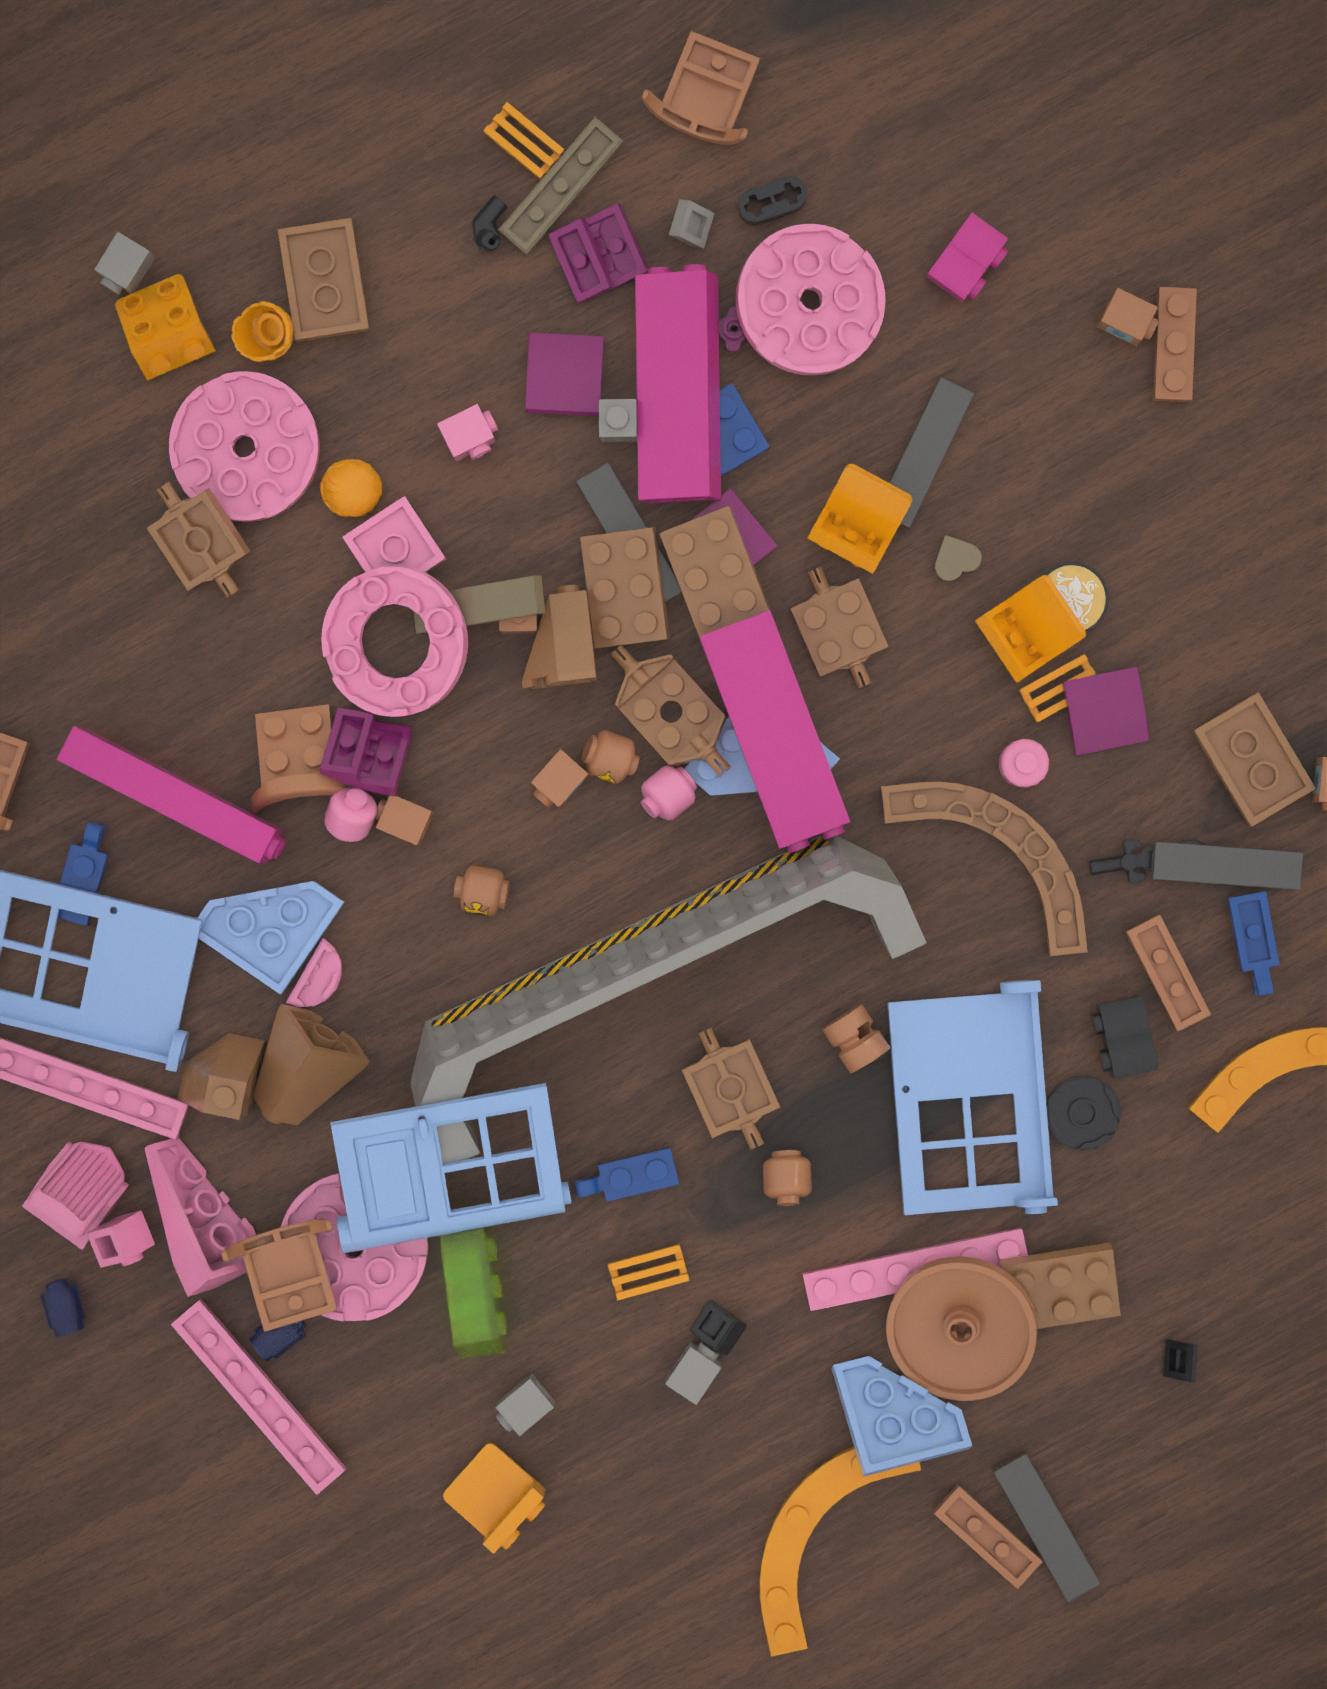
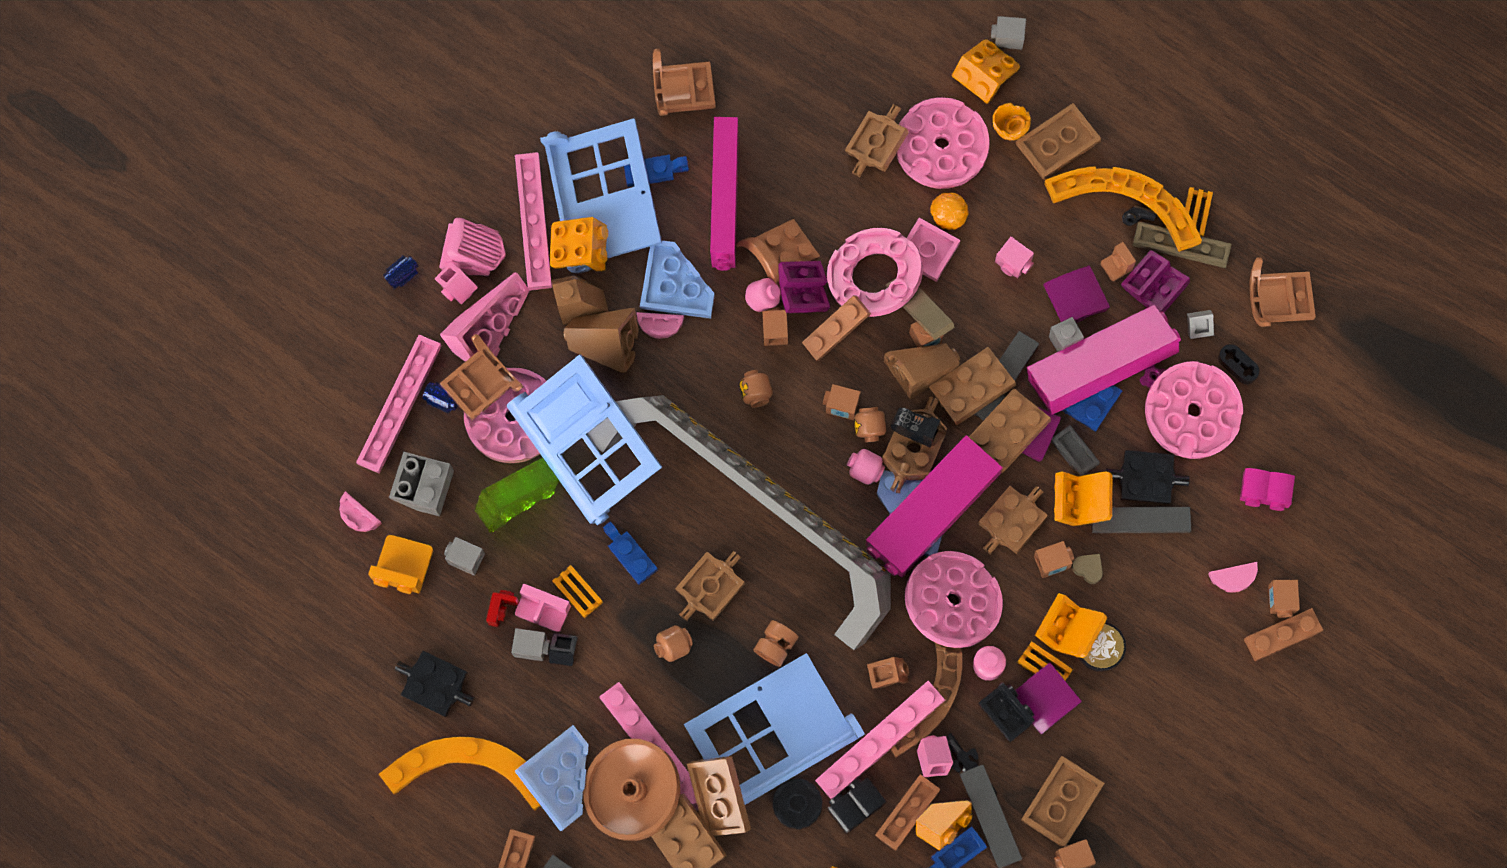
camera: 65 degrees right, 15 degrees down
(148, 1038) = (579, 243): none -> light orange bracket
(391, 1526) = (356, 515): none -> bright pink tile
(393, 1418) = (422, 483): none -> light grey slope
(442, 209) = (1135, 186): none -> light orange plate
(450, 735) = (836, 328): none -> nougat plate
(547, 291) = (1119, 263): none -> nougat bracket
(623, 1395) = (497, 610): none -> red bracket
(648, 698) = (915, 426): none -> black leg
(649, 1331) = (542, 608): none -> bright pink panel
(682, 1525) = (434, 683): none -> black plate
(784, 492) = (1075, 451): none -> dark grey tile
(869, 412) = (1148, 477): none -> black plate
(923, 601) = (1053, 559): none -> nougat brick
(924, 804) = (936, 616): none -> bright pink plate
(968, 904) = (888, 672): none -> nougat bracket
(1031, 1218) = (719, 795): none -> medium nougat plate
(1057, 962) = (880, 740): none -> bright pink plate
(1067, 367) = (1234, 578): none -> bright pink tile
(1100, 773) = (1007, 711): none -> black bracket
(1113, 900) = (934, 756): none -> bright pink brick
(1205, 935) = (942, 822): none -> light orange slope

